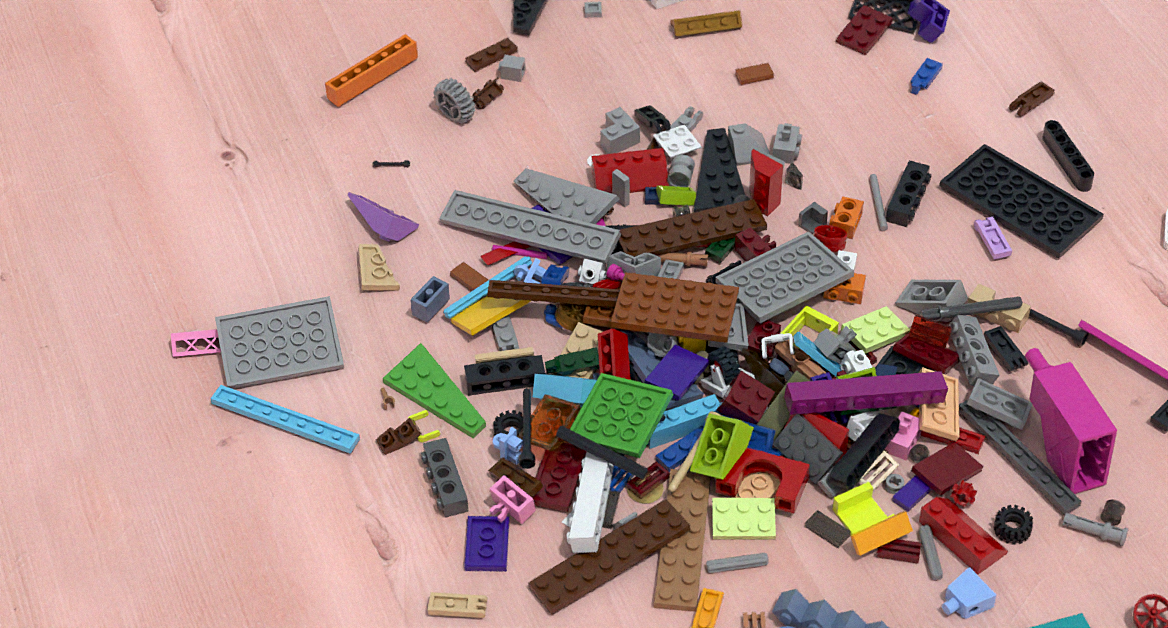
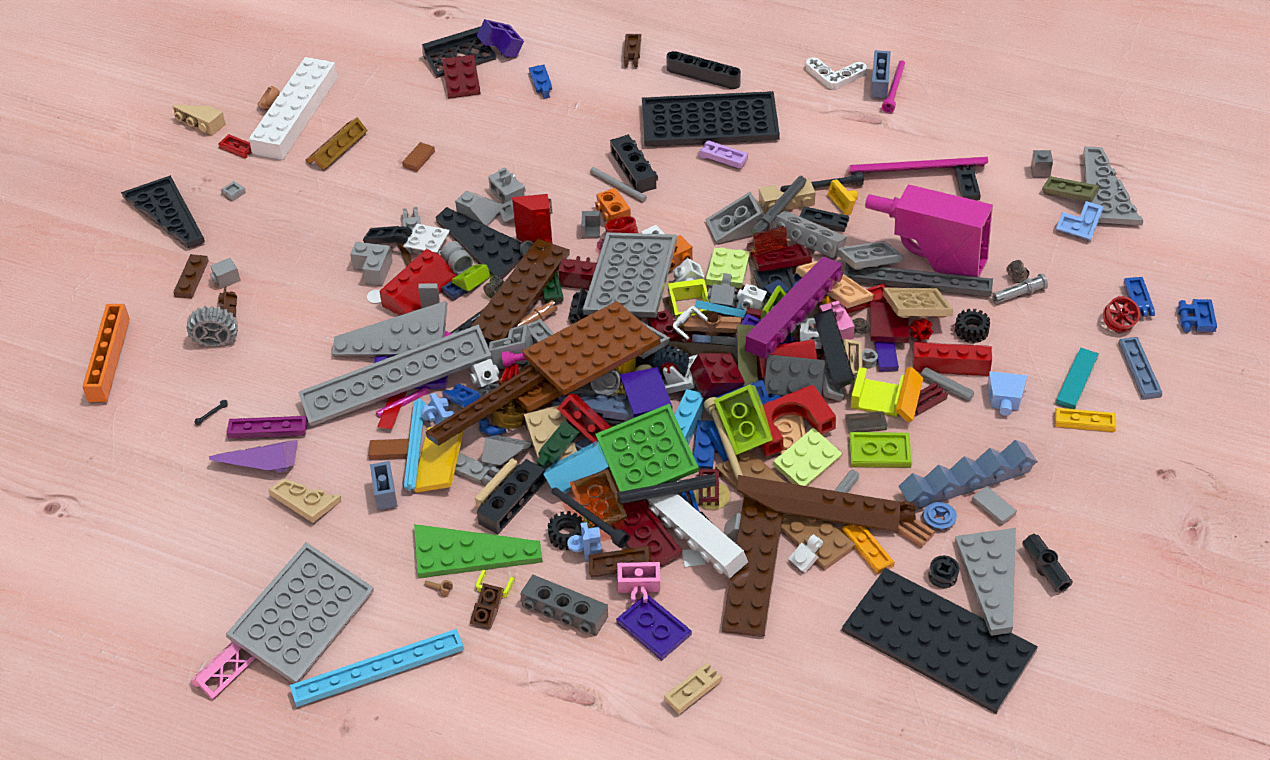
camera: 45 degrees left, 0 degrees up
(411, 200) = (267, 427): none -> magenta plate
(539, 336) = (501, 449): none -> light grey slope
(649, 582) = (805, 555): none -> white plate
(707, 558) = (827, 504): none -> reddish brown hinge
(811, 557) = (880, 449): none -> lime tile
(835, 308) = (688, 271): none -> white brick
(985, 469) = (917, 302): none -> tan plate
(1045, 342) = (841, 197): none -> yellow tile

